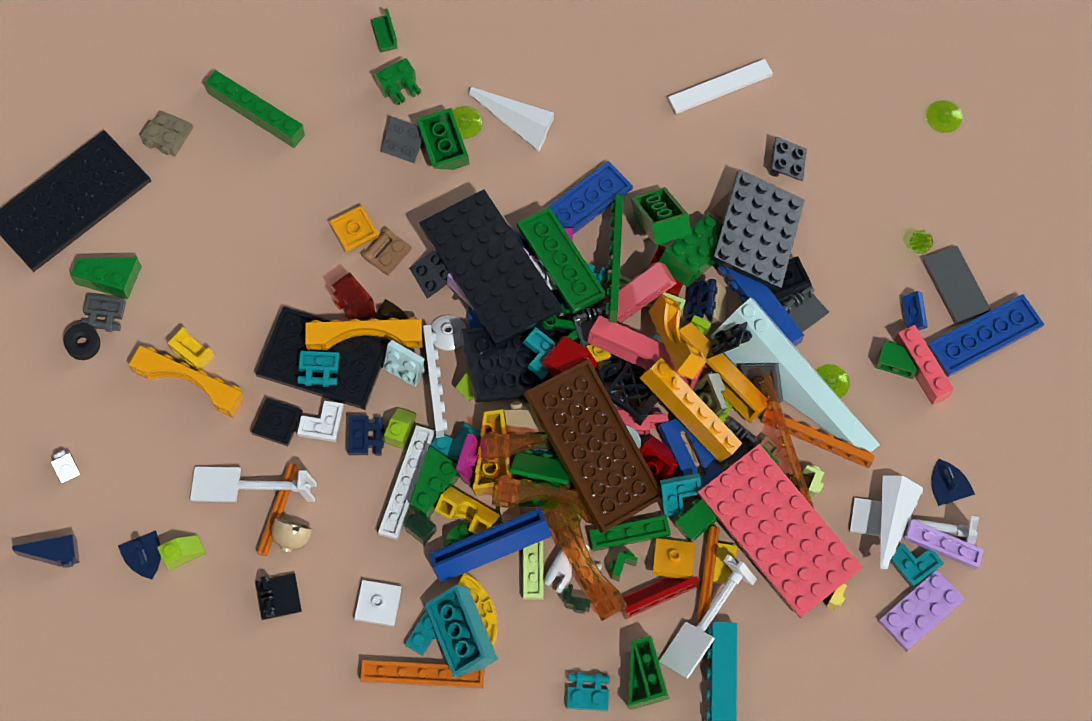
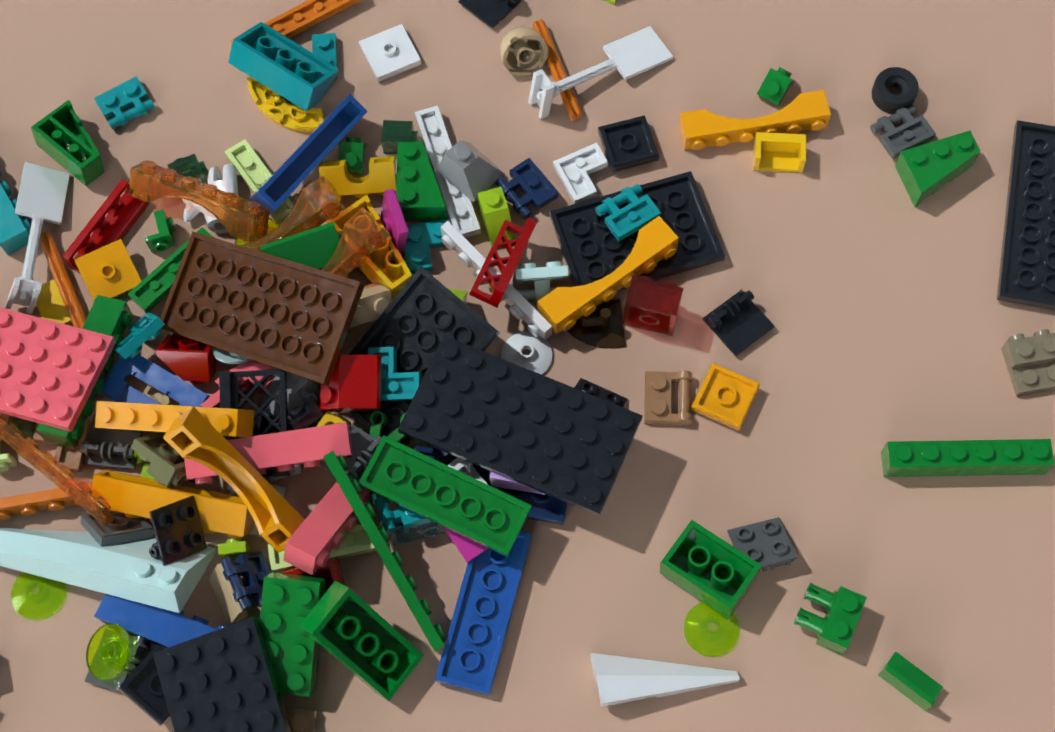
camera: 150 degrees right, 0 degrees up
(150, 396) = (775, 85): none -> green bracket
(308, 266) = (738, 322): none -> black hinge
(392, 469) = (469, 169): none -> light grey slope
(419, 376) = (511, 262): none -> red fence
(812, 310) = (108, 651): none -> clear neon green dish

